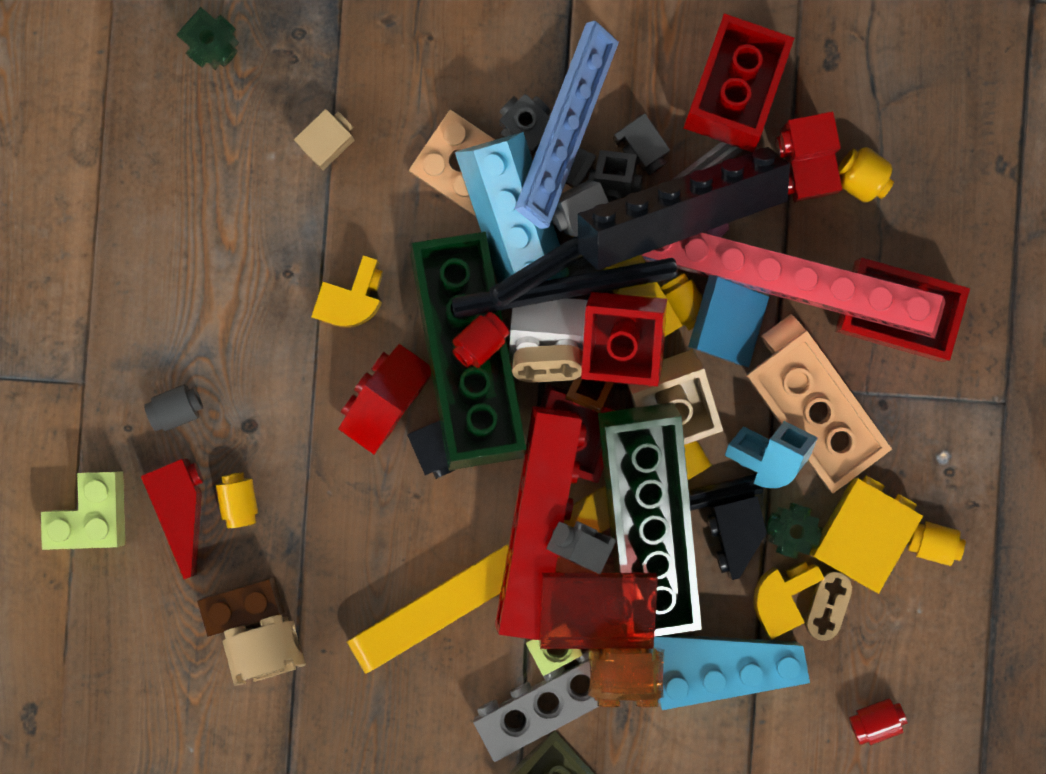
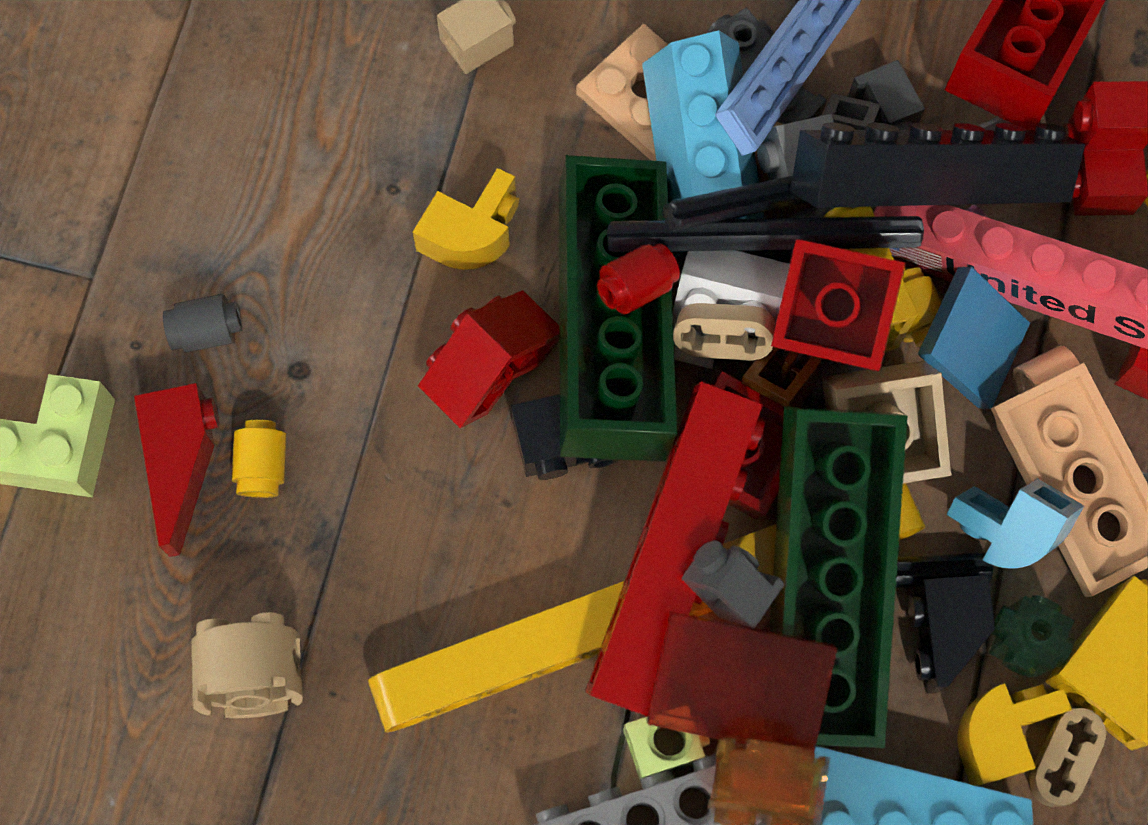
camera: 10 degrees right, 15 degrees down
(240, 606) = (228, 596): reddish brown brick -> none

